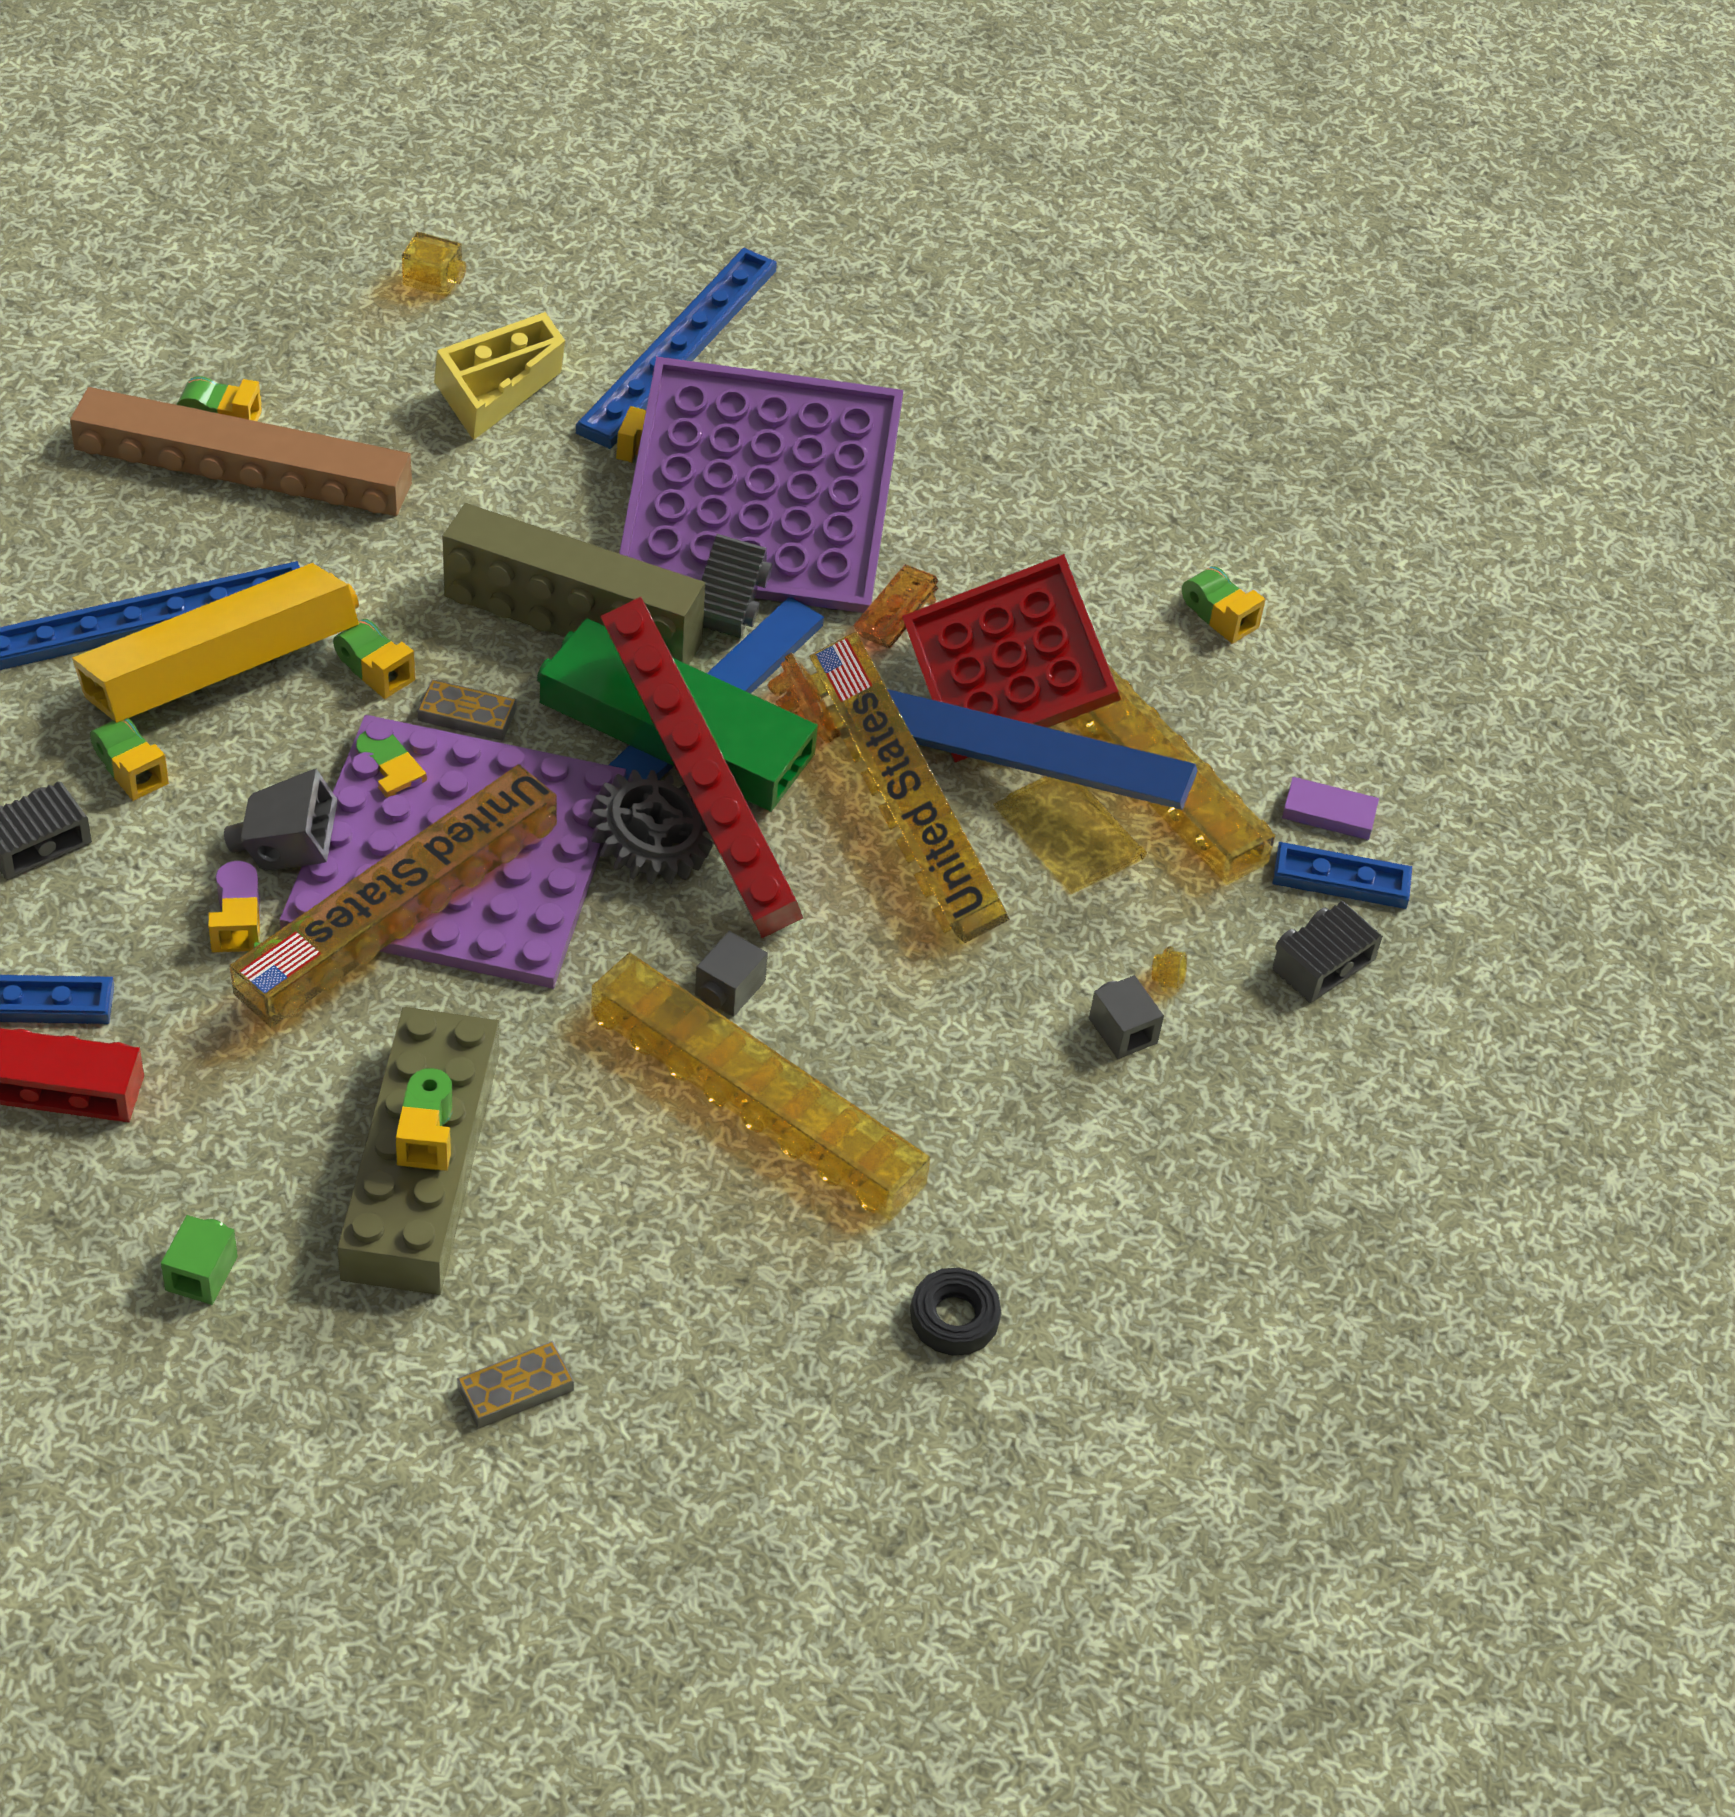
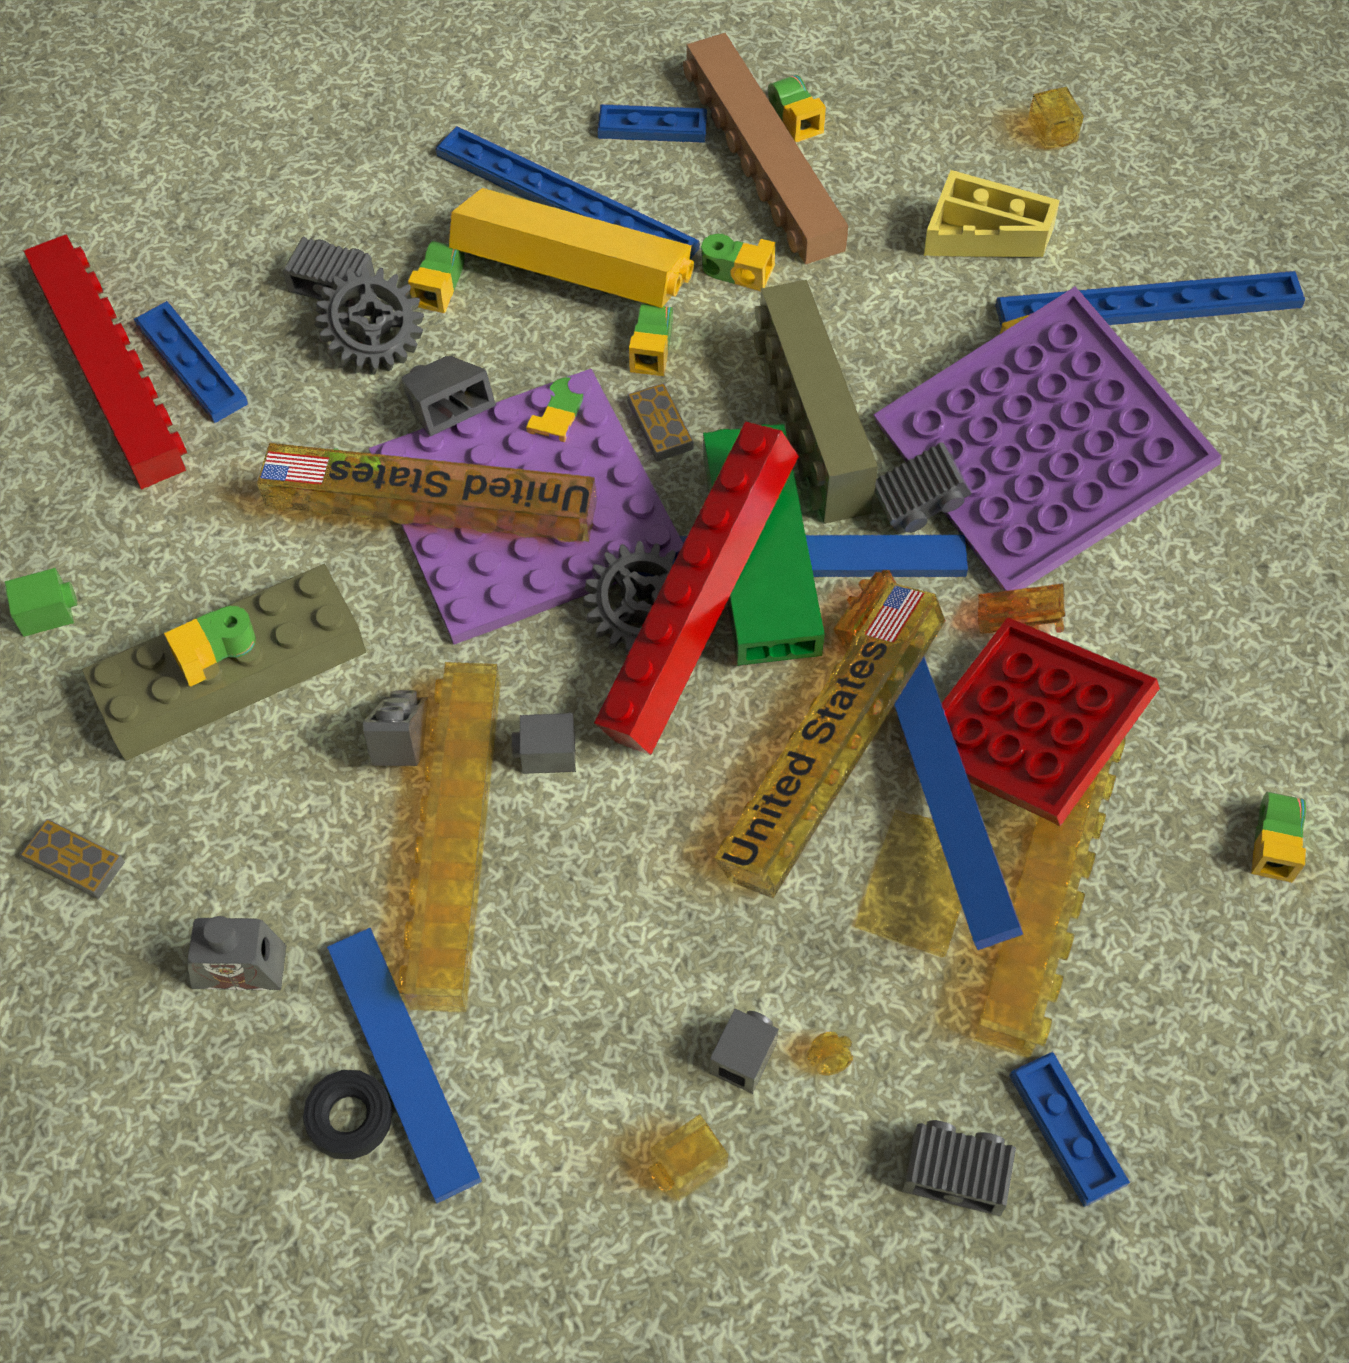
camera: 60 degrees right, 10 degrees up
(114, 508) = (652, 123): none -> blue tile
(136, 829) = (355, 323): none -> dark grey gear
(239, 898) = (357, 419): yellow leg -> none
(355, 549) = (738, 261): none -> leg
(624, 1061) = (397, 729): none -> dark grey slope
(748, 1290) = (230, 952): none -> dark grey torso
(935, 1245) = (404, 1066): none -> blue tile
(1186, 1104) = (687, 1158): none -> clear yellow brick
(1330, 808) = (1136, 1070): medium lavender tile -> none

